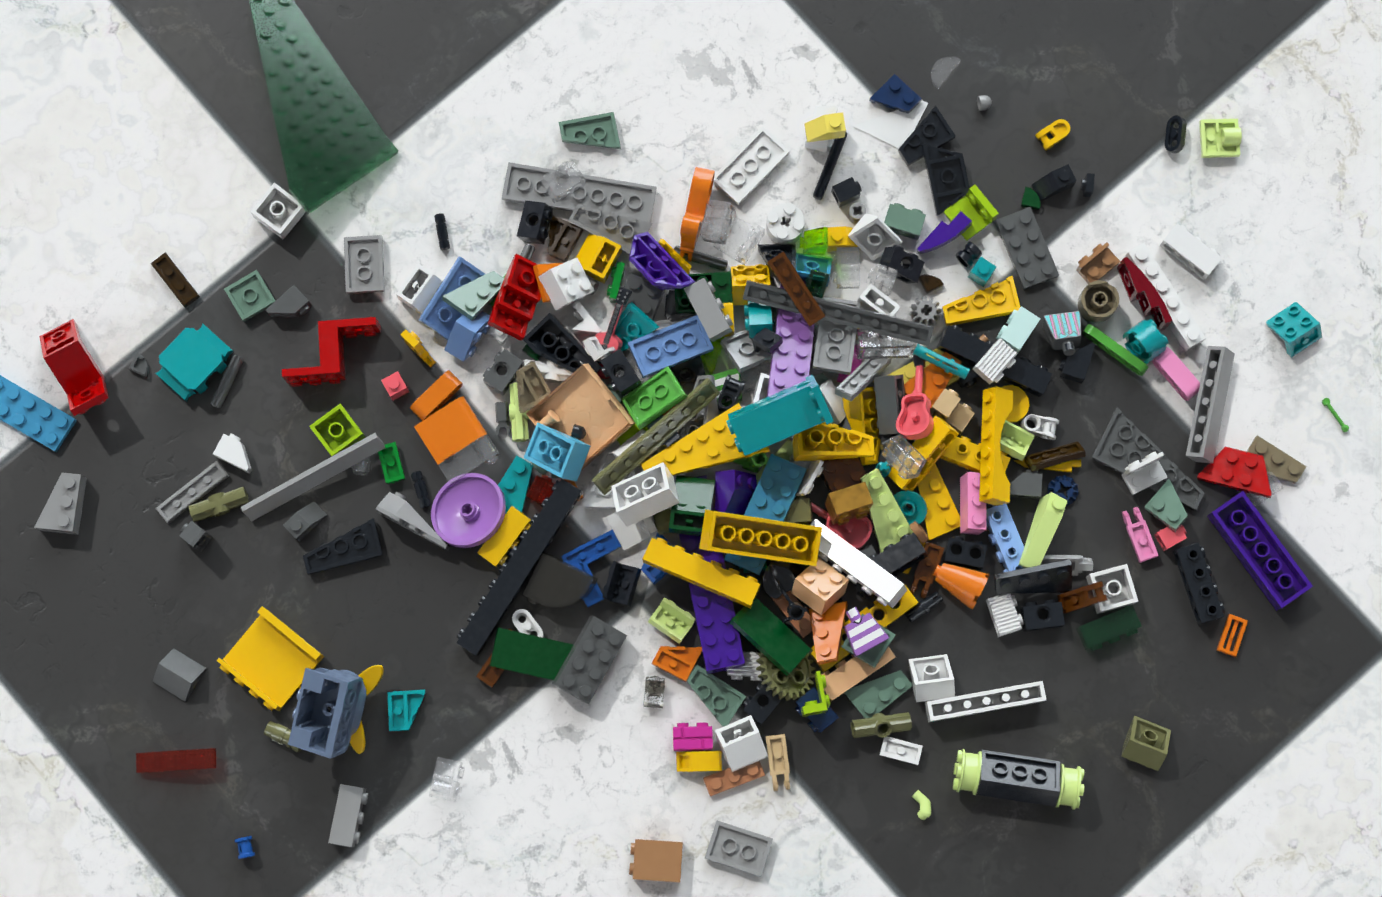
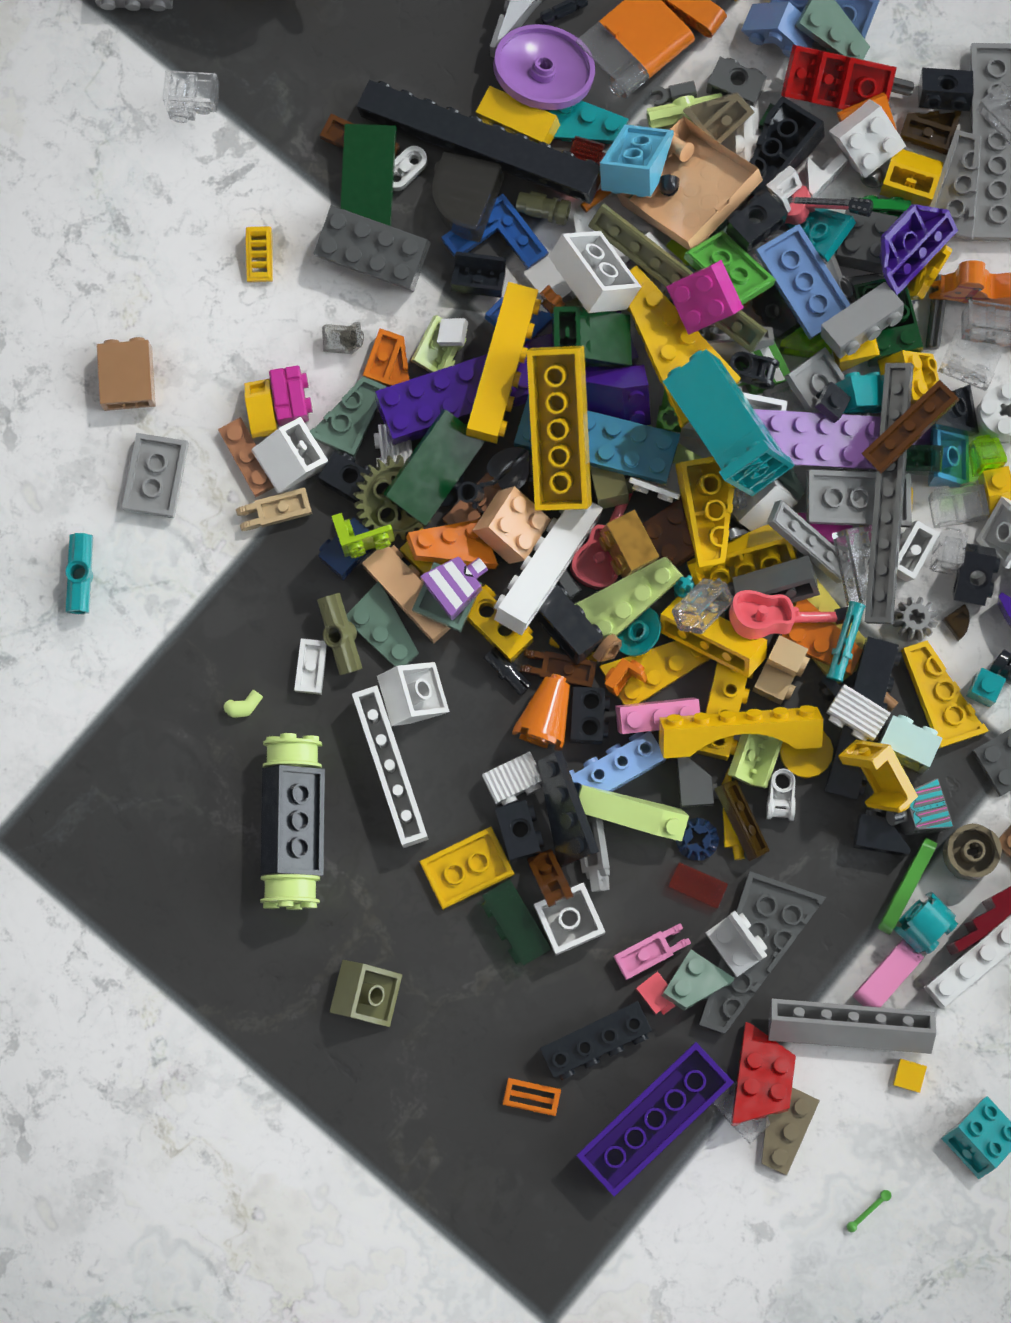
camera: 85 degrees right, 0 degrees up
(403, 708) = (277, 34): teal wing -> none
(560, 750) = (259, 232): none -> yellow slope
(574, 530) = (540, 206): none -> olive axle
(659, 530) = (551, 299): none -> dark orange plate
(665, 608) = (452, 332): none -> white tile
(679, 417) = (705, 297): none -> dark pink brick
(941, 527) = (619, 676): none -> orange bracket
(1047, 348) = (884, 774): none -> yellow panel
(1063, 657) = (467, 868): none -> yellow tile
(1096, 495) = (698, 885): none -> clear red tile
(1246, 371) = (909, 1075): none -> yellow tile

